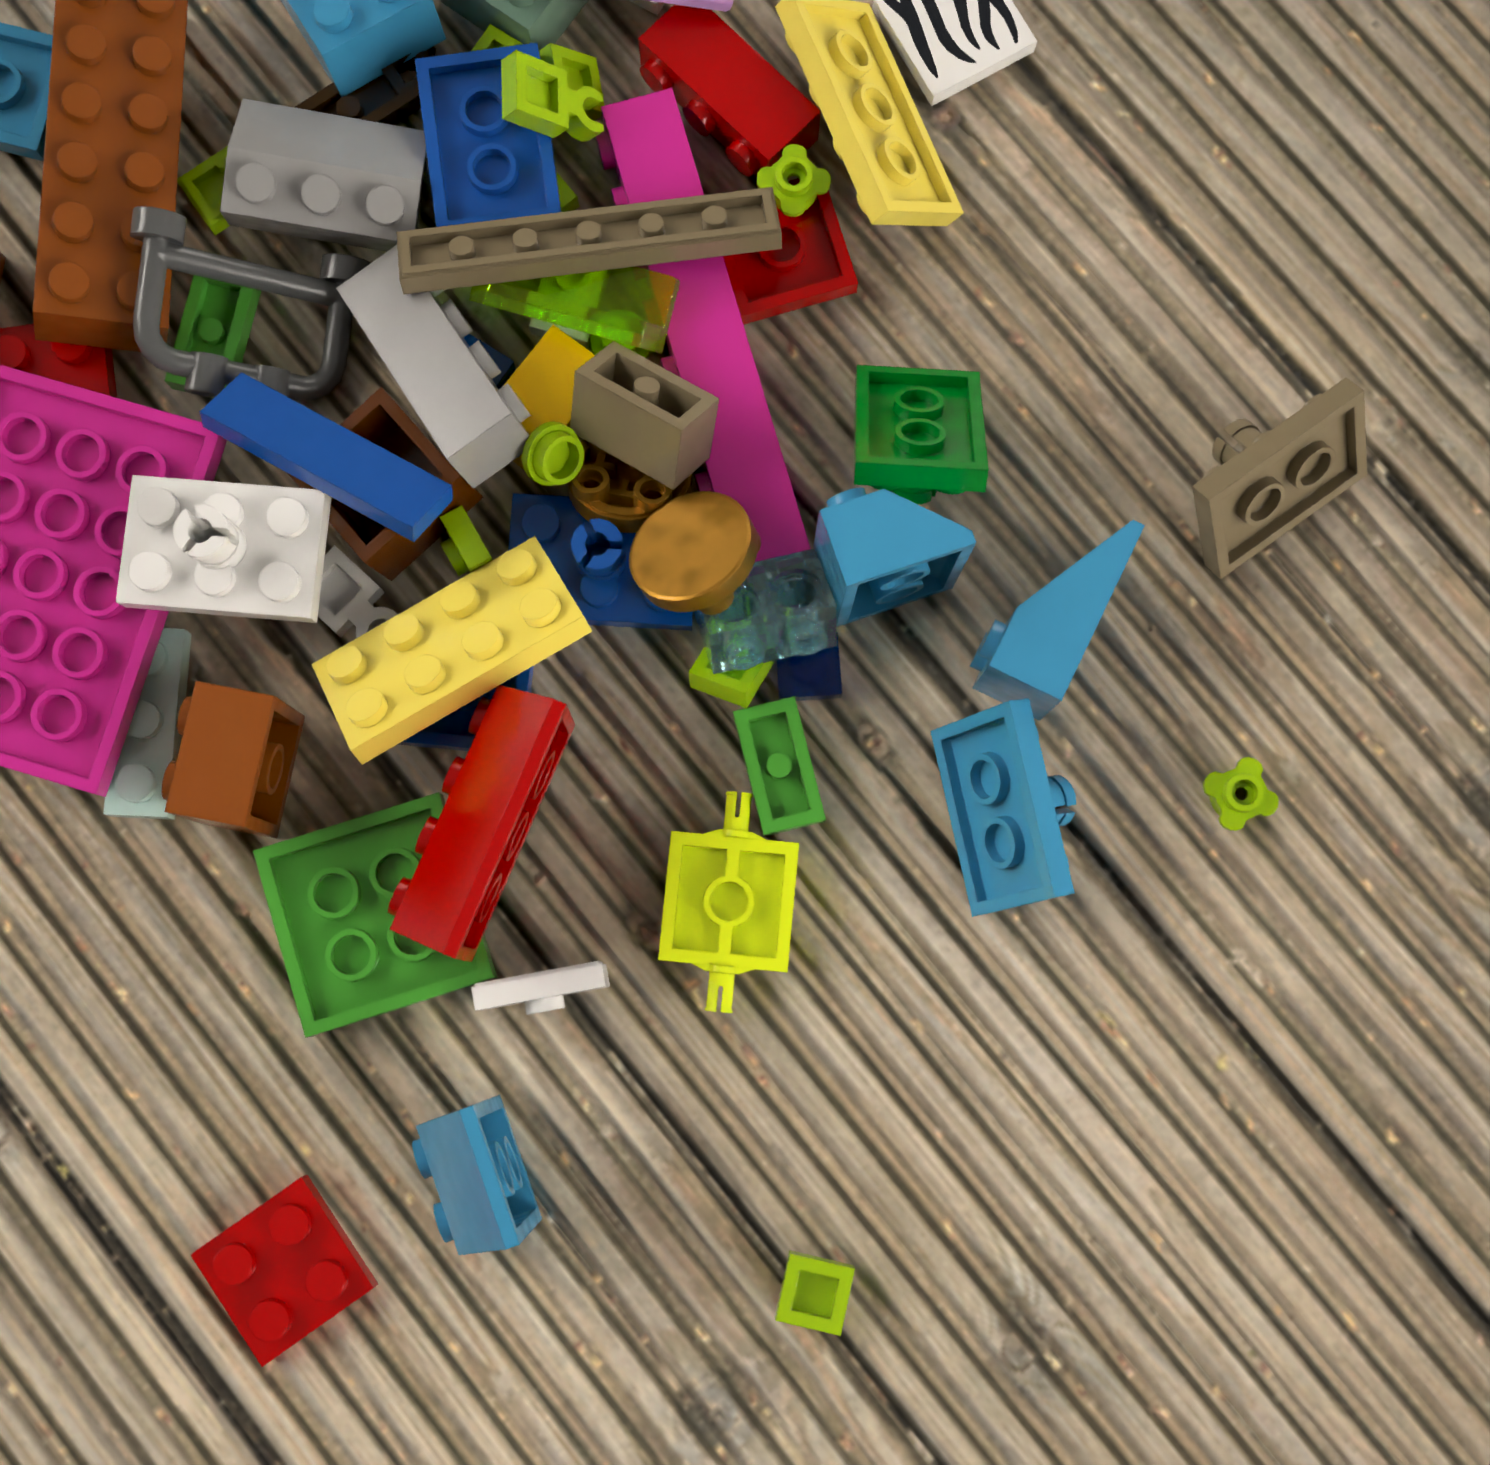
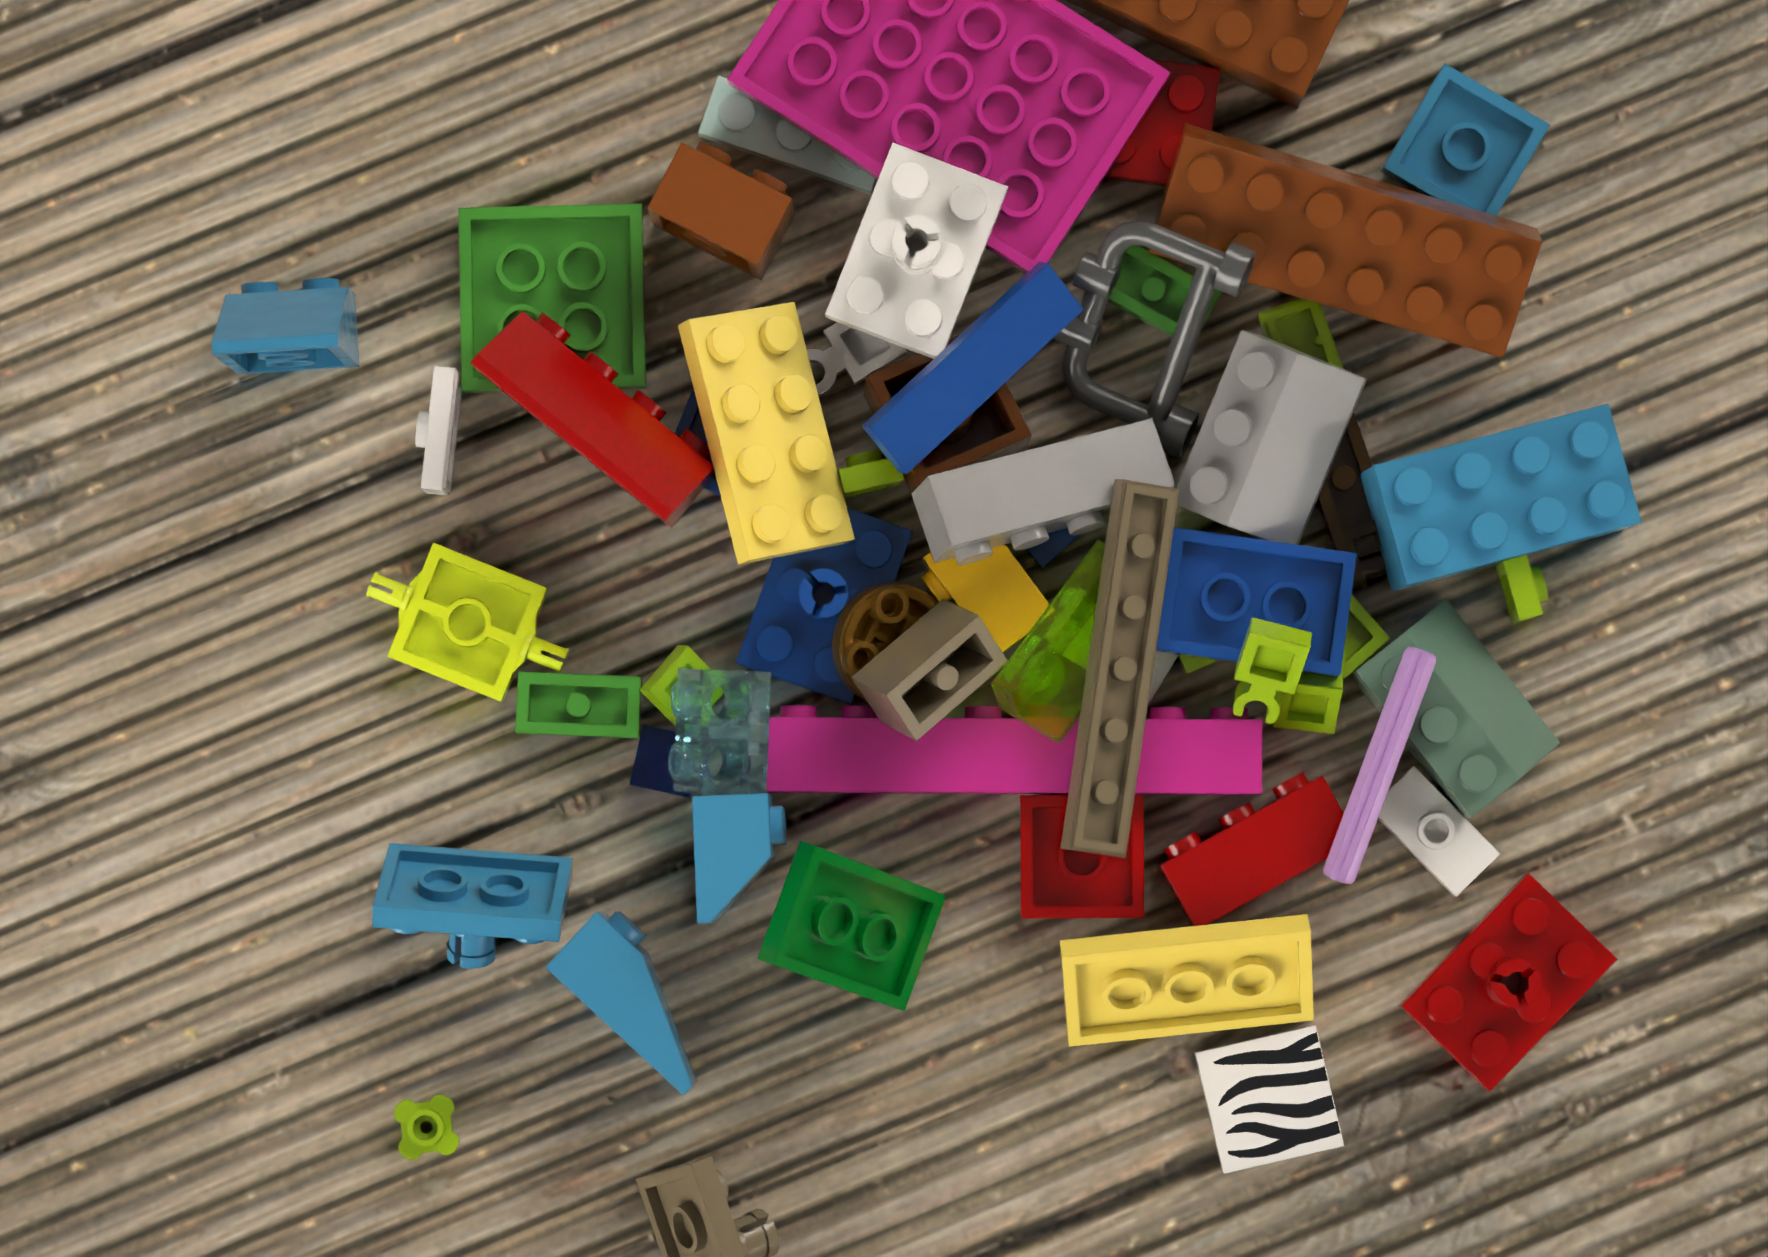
camera: 110 degrees right, 5 degrees up
(284, 1270) = (262, 135): red plate -> none
(552, 454) = (921, 576): lime plate -> none
(694, 553) = (787, 679): pearl gold tile -> none
(796, 198) = (1117, 879): lime plate -> none
(814, 1293) = (99, 598): lime plate -> none

